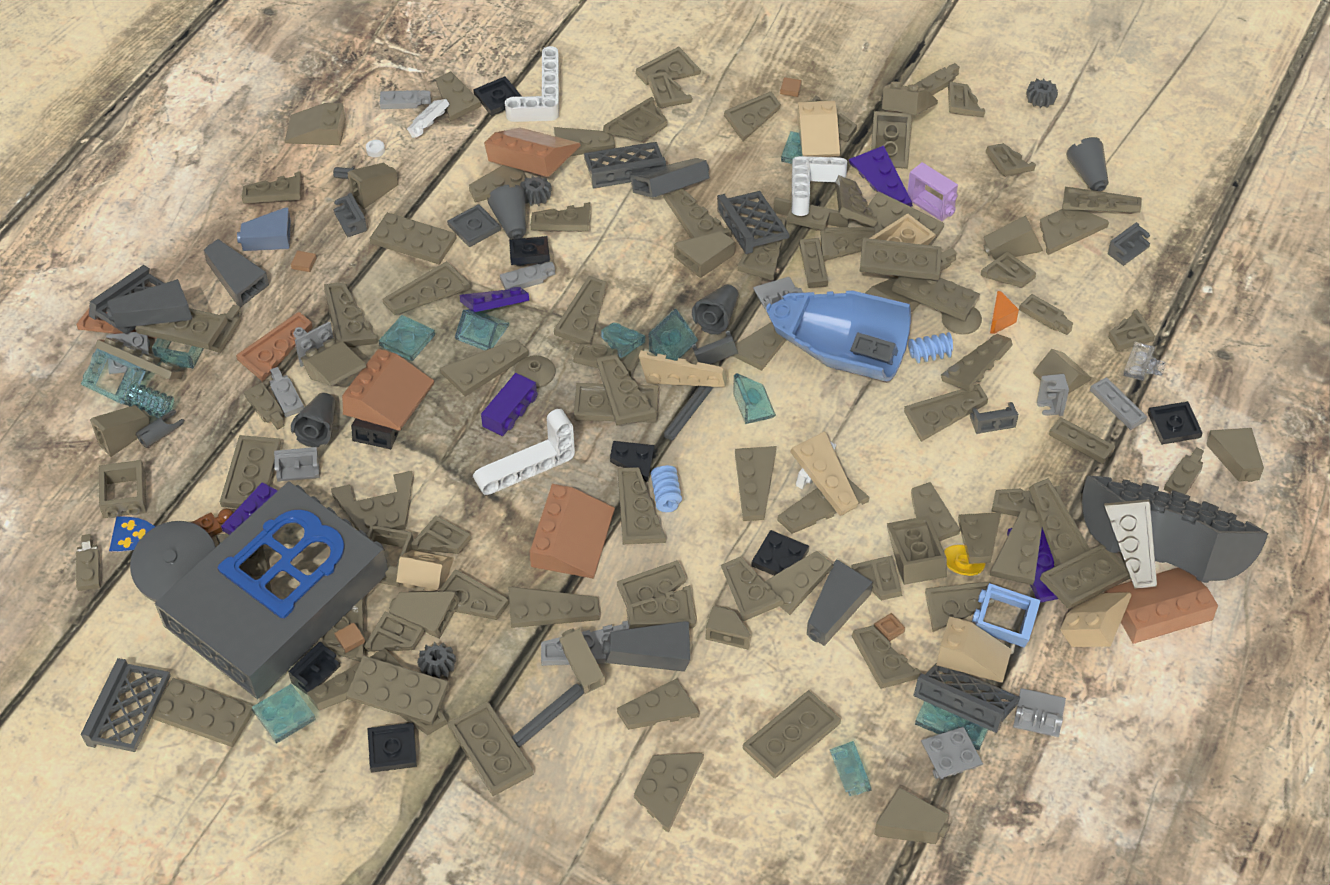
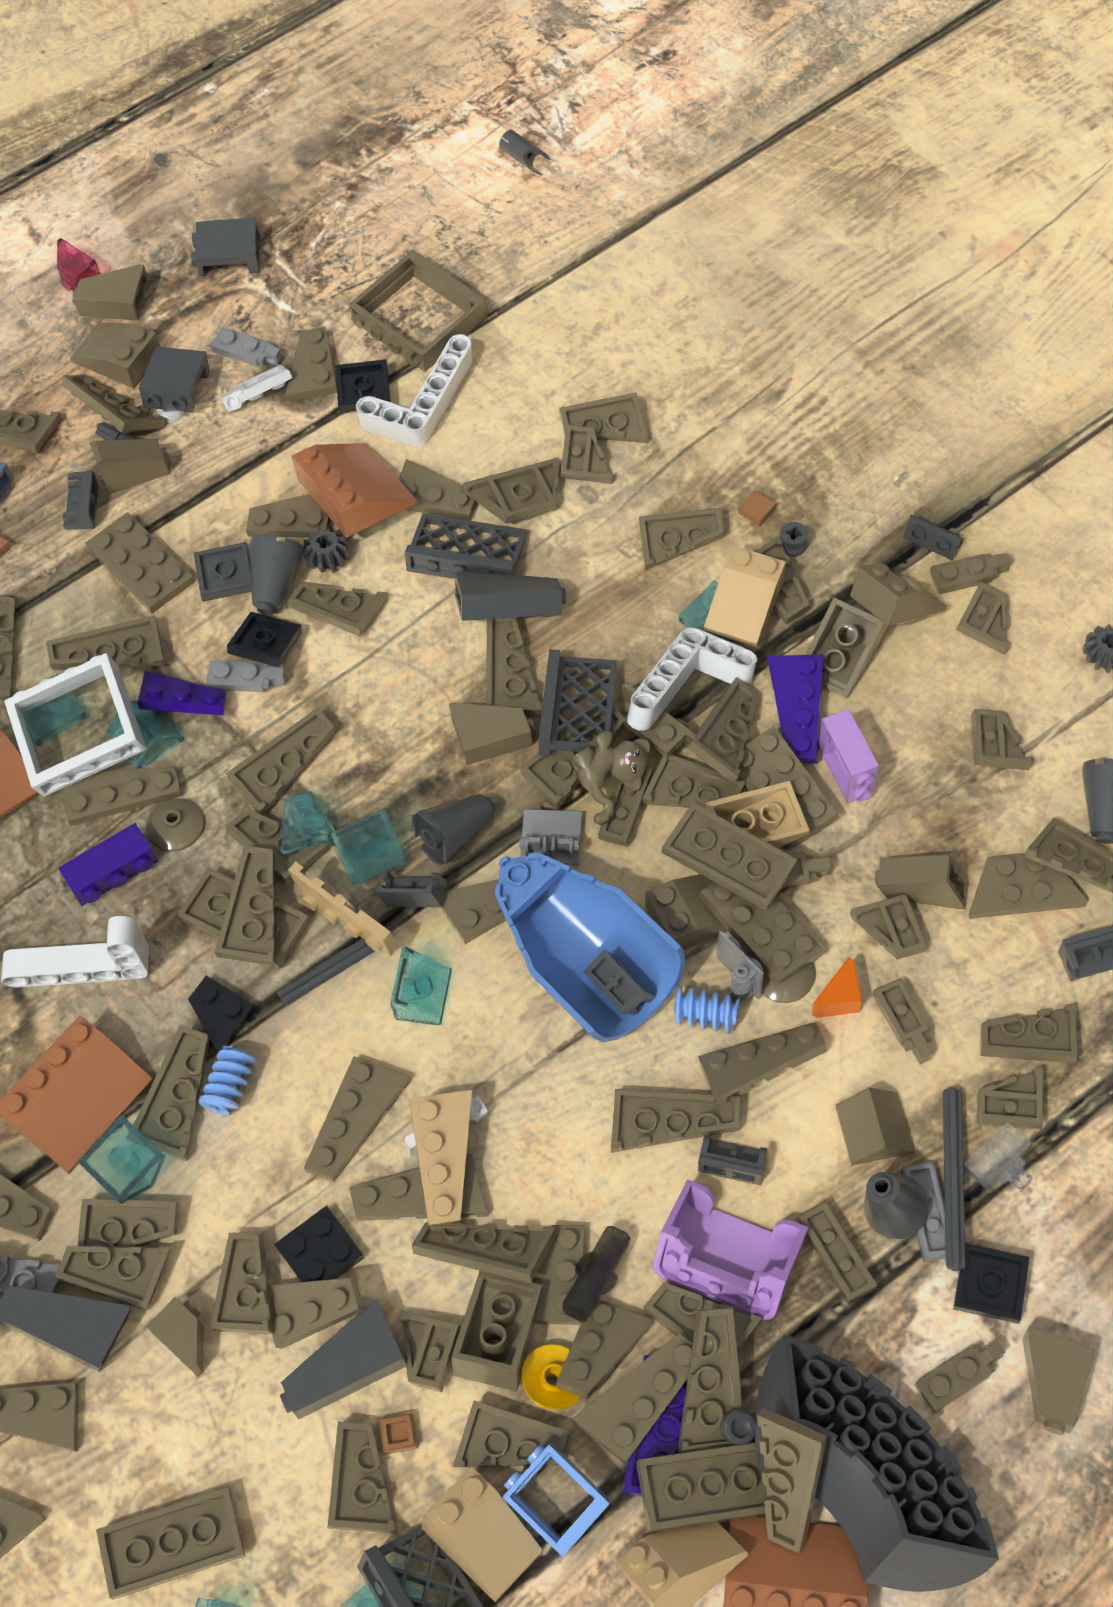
camera: 30 degrees right, 10 degrees up
(254, 86) = (73, 265): none -> clear pink slope
(291, 95) = (112, 294): none -> dark tan slope
(352, 43) = (226, 243): none -> dark grey panel
(353, 158) = (112, 406): none -> dark tan wing
(370, 127) = (173, 378): none -> dark grey panel
(460, 351) = (92, 760): none -> white window
(512, 25) = (437, 279): none -> dark tan window
(631, 548) = (123, 1161): none -> clear light blue slope
(789, 240) = (624, 761): none -> dark tan animal
(825, 92) = (798, 544): none -> dark grey wheel
(882, 512) = (487, 1249): none -> dark tan wing
(905, 69) = (932, 537): none -> dark grey hinge
(938, 316) = (746, 972): none -> light grey hinge
(955, 499) = (596, 1273): none -> clear smoke piece
(1023, 465) = (727, 1255): none -> lavender windscreen
(1053, 393) = (833, 1158): light grey hinge -> none
(1084, 541) = (738, 1426): none -> flat silver tile
(1099, 401) = (895, 1205): none -> dark grey cone
(1123, 297) = (1035, 1037): none -> dark tan wing
(1123, 380) = (953, 1180): none -> dark grey axle

